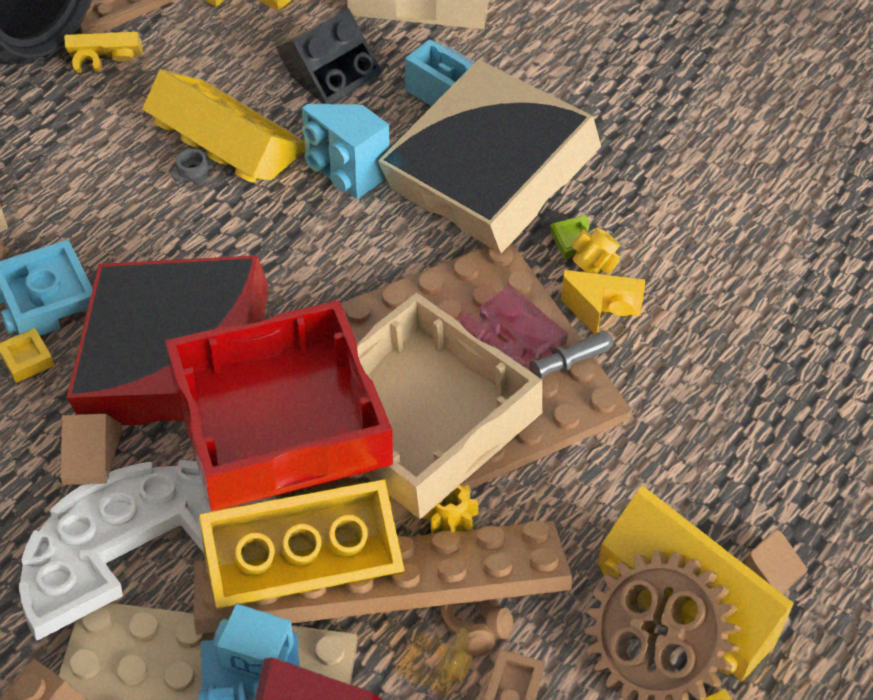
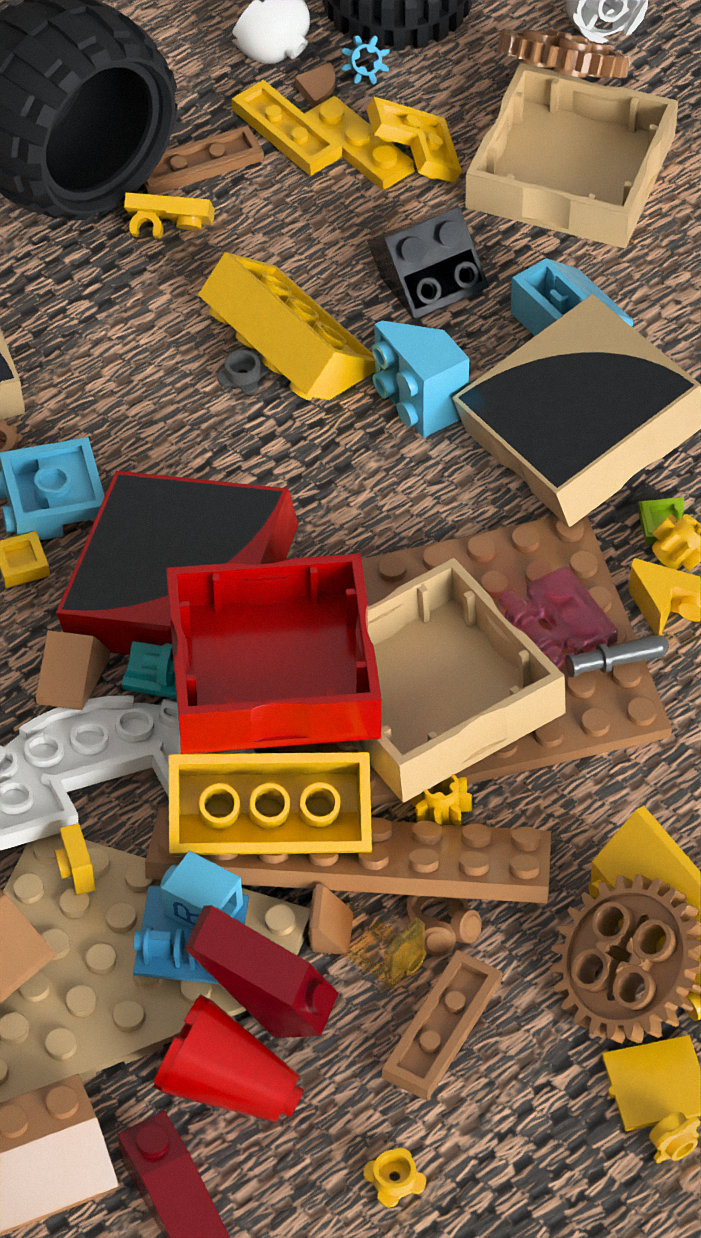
camera: 15 degrees right, 0 degrees up
(125, 629) = (74, 859): none -> yellow plate
(164, 436) = (150, 670): none -> teal hips
(375, 644) = (329, 922): none -> medium nougat slope

